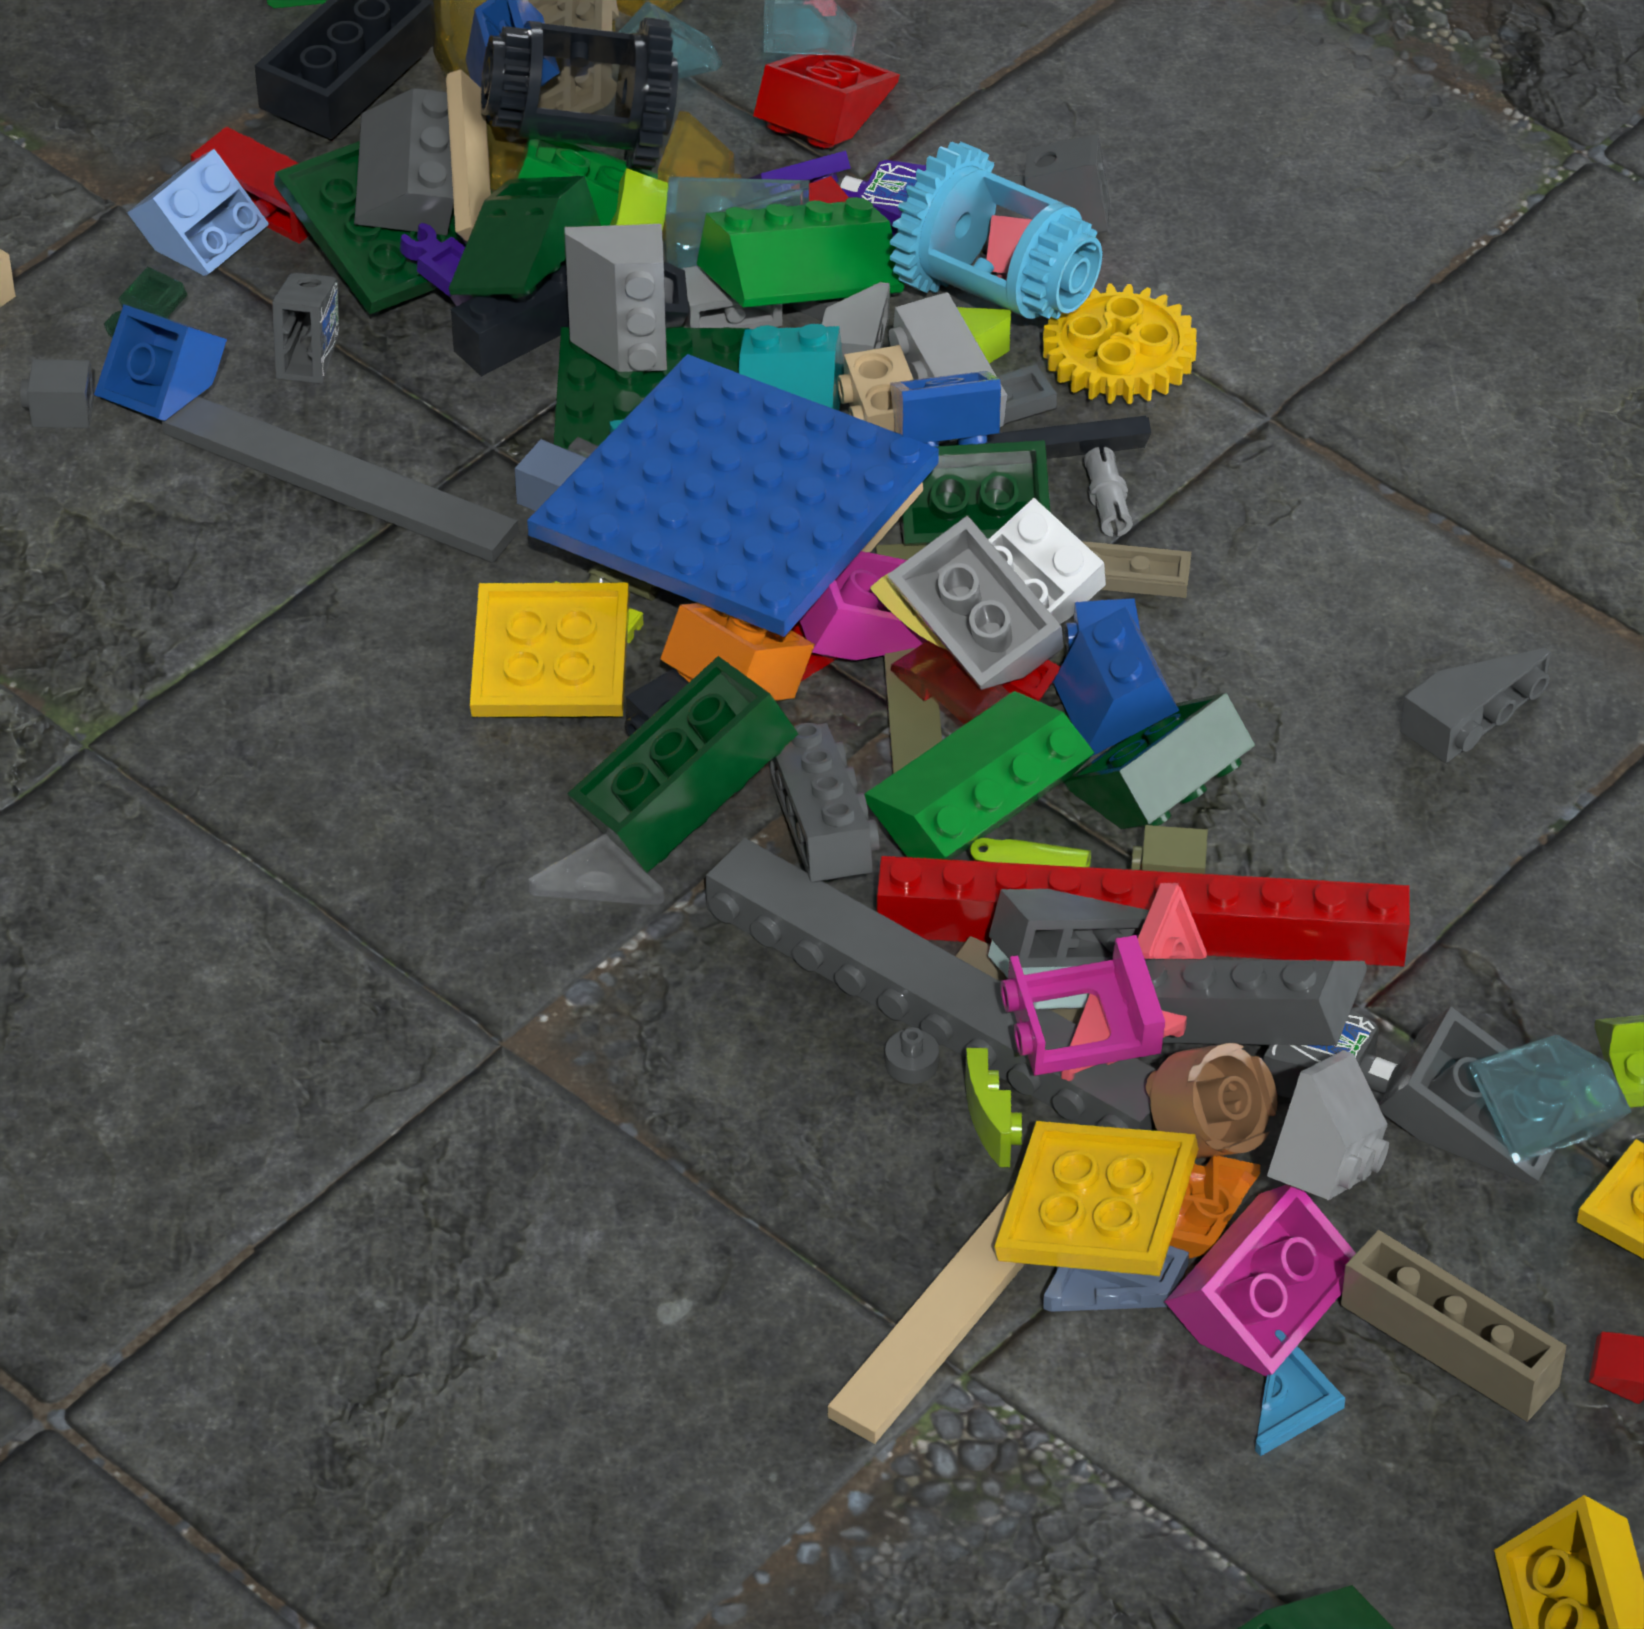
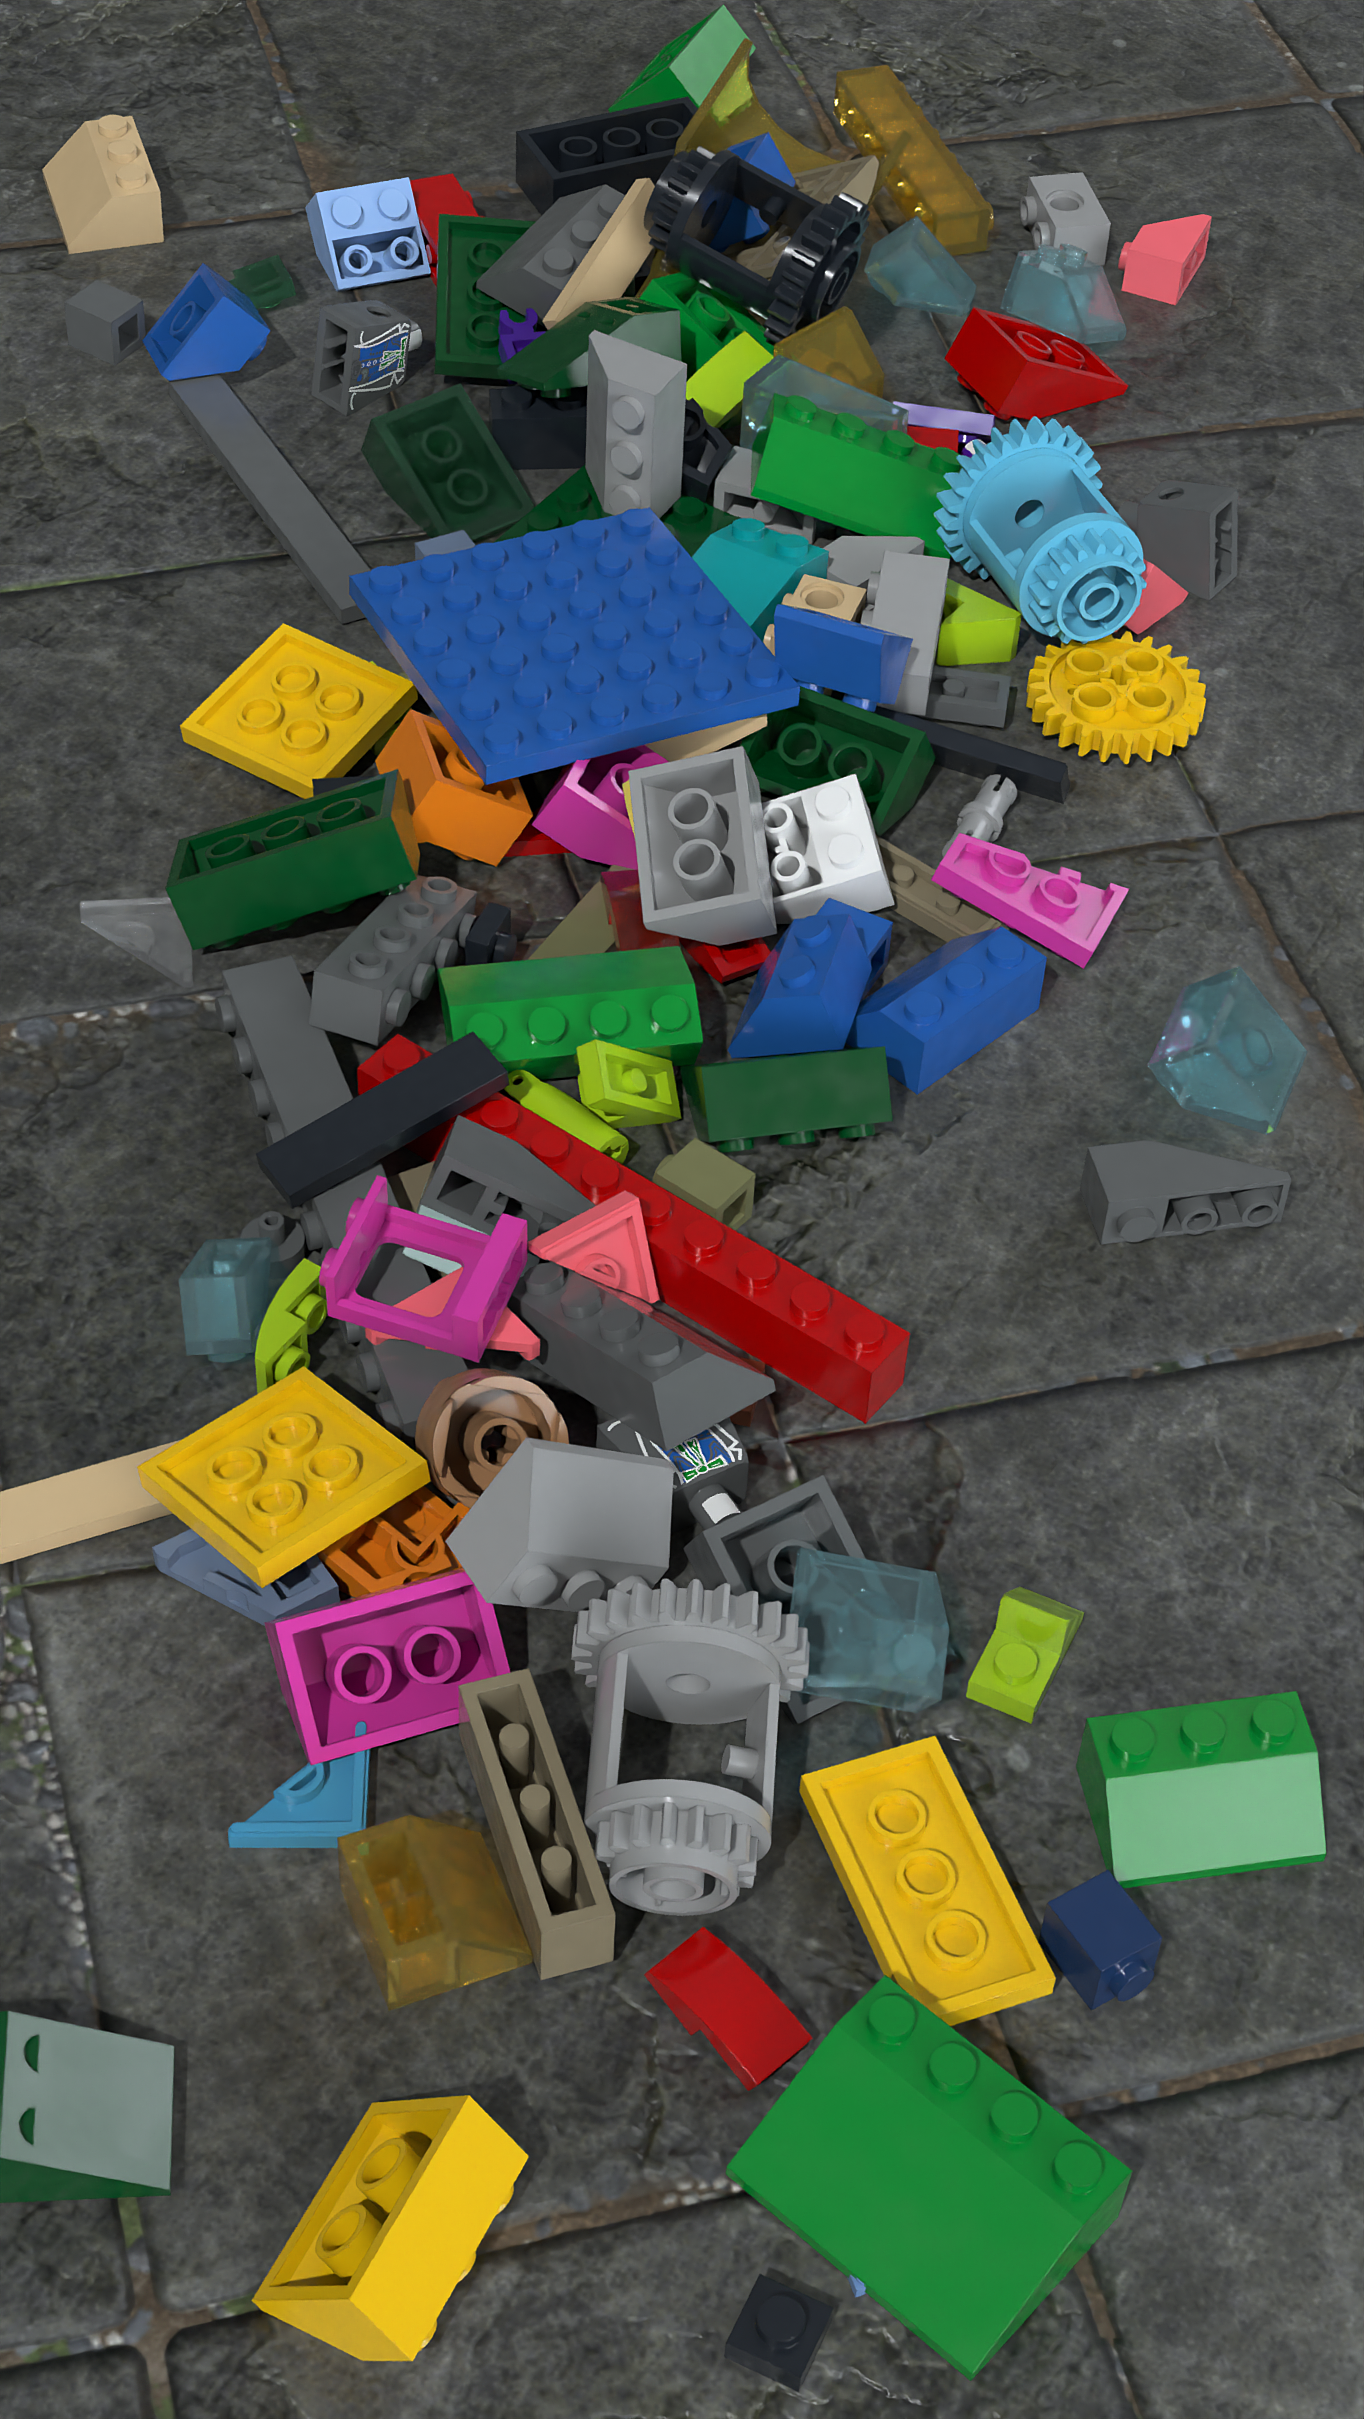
camera: 30 degrees right, 0 degrees up
(467, 396) = (445, 467): none -> clear green slope
(861, 755) = (491, 937): none -> black plate
(930, 1103) = (225, 1297): none -> clear light blue slope
(940, 921) = (382, 1119): none -> black tile
(1053, 815) = (626, 1085): none -> lime slope
(1207, 532) = (1038, 903): none -> dark pink wing
(1209, 632) = (950, 1005): none -> blue slope
(1423, 581) = (1228, 1053): none -> clear light blue slope
(1430, 1419) = (428, 1908): none -> clear yellow slope
(1479, 1166) = (685, 1662): none -> light grey piece

